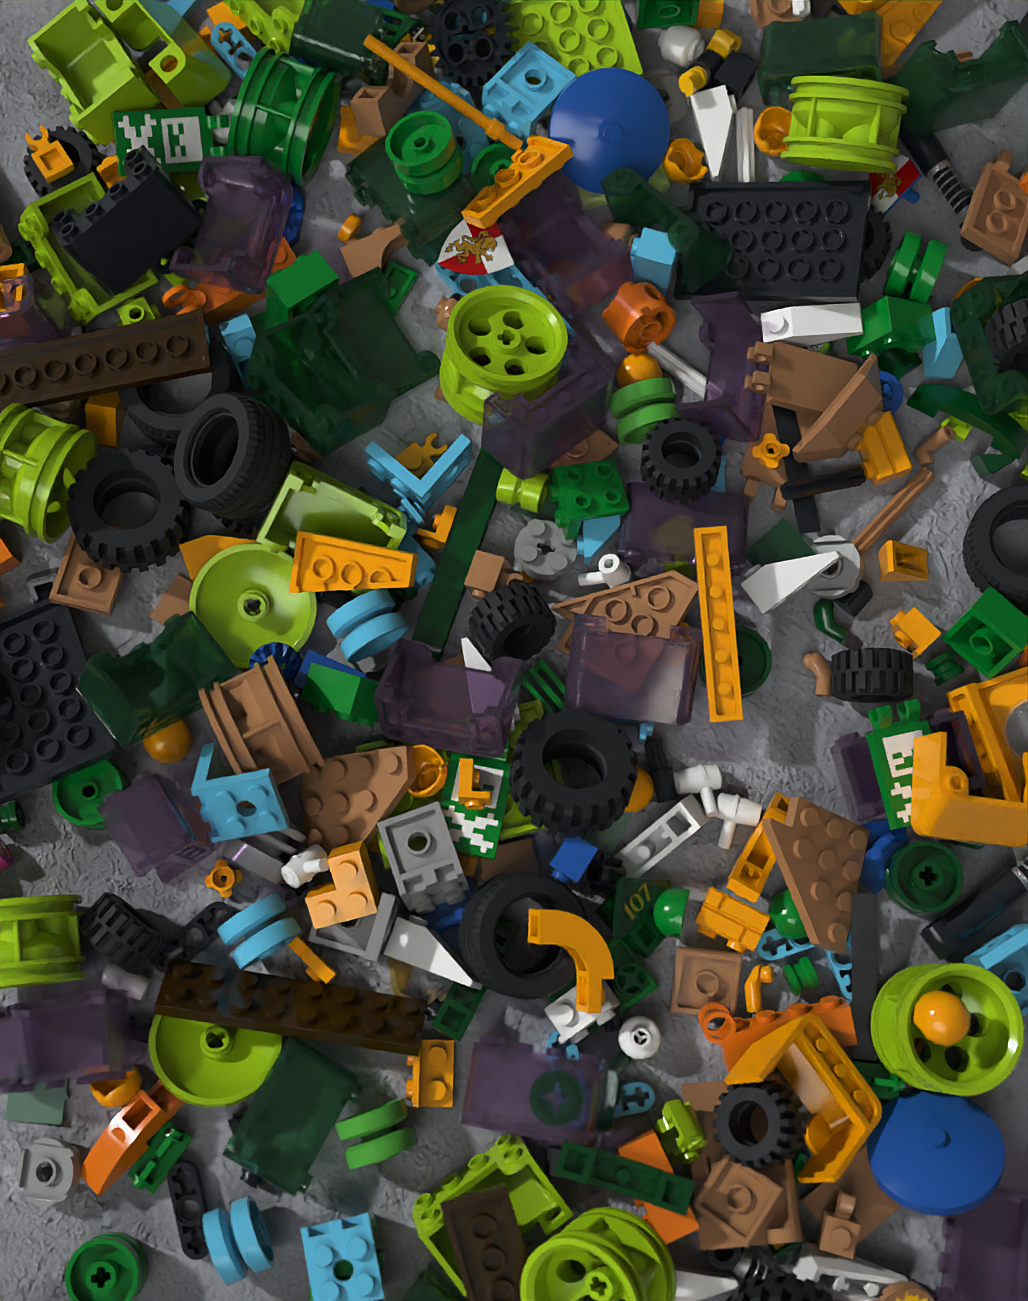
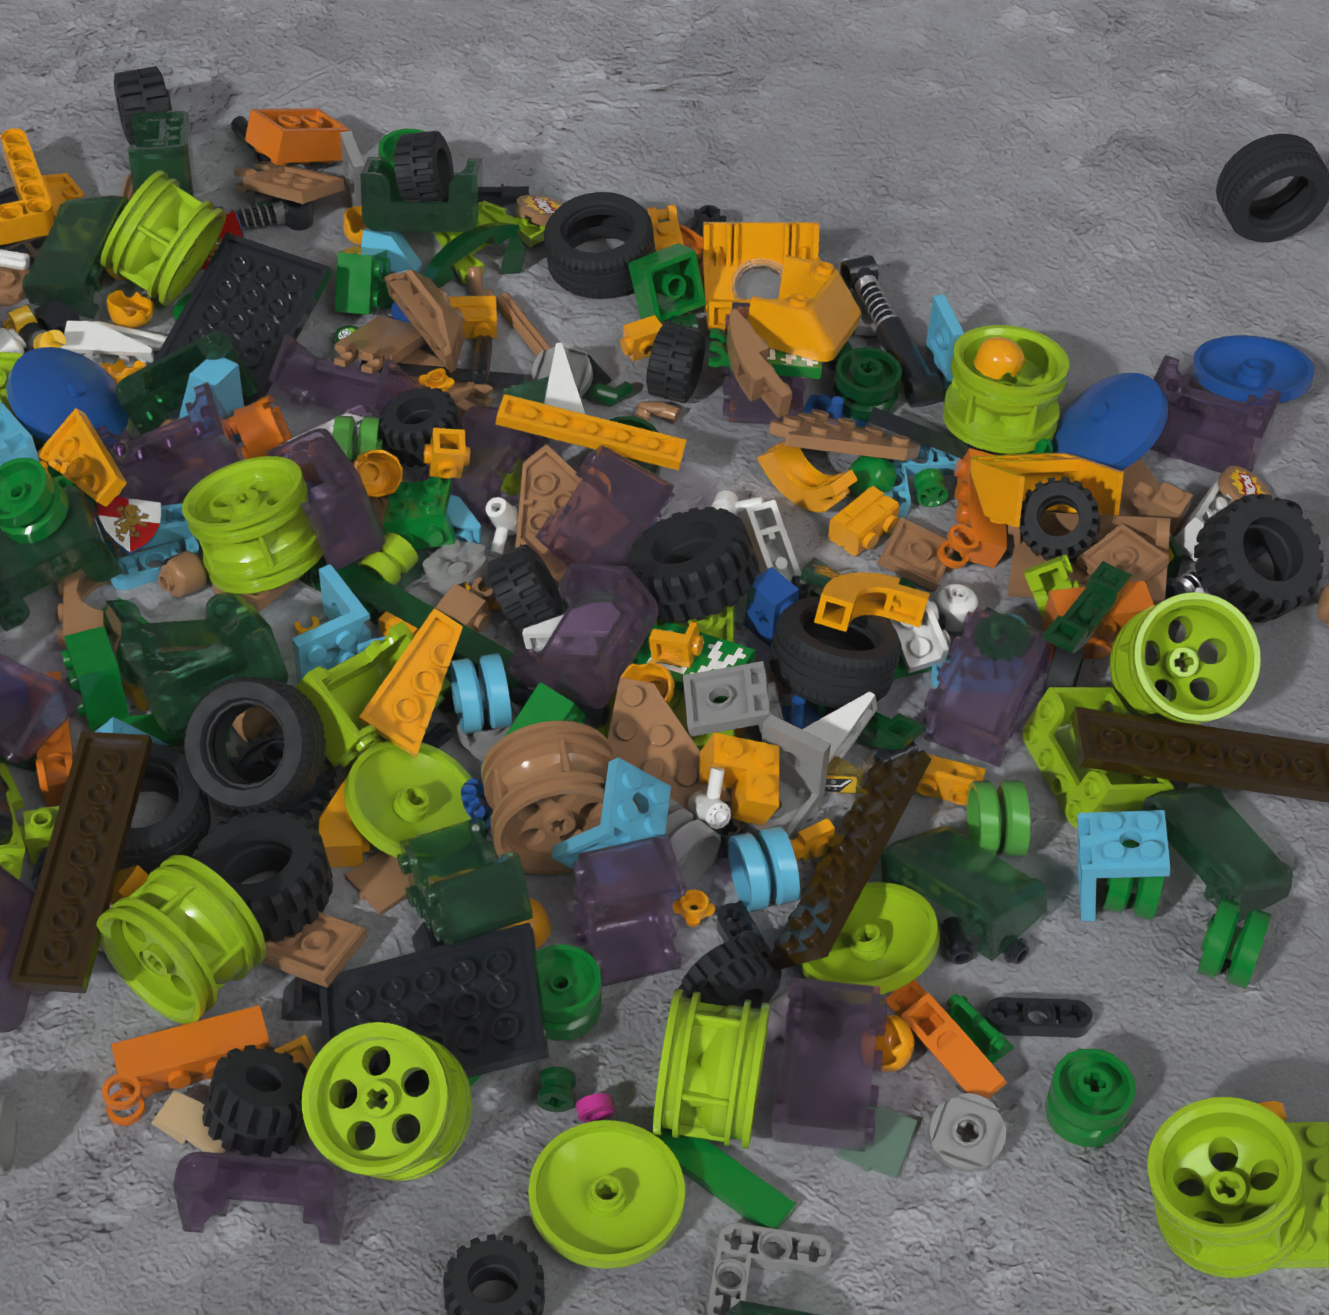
camera: 80 degrees left, 30 degrees down
(238, 1240) = (1080, 959): medium azure wheel -> none
(350, 228) = (42, 636): light orange tile -> none
(605, 440) = (379, 472): none -> light orange hair
(637, 485) = (447, 453): none -> light orange brick
(670, 911) = (845, 552): green hair -> none
(735, 811) = (769, 487): white piece -> none
(759, 975) = (922, 517): light orange arm -> none
(812, 324) = (331, 320): white slope -> none
(872, 749) = (750, 366): none -> medium nougat slope
(902, 562) = (577, 332): light orange slope -> none
(913, 268) = (315, 238): green wheel -> none

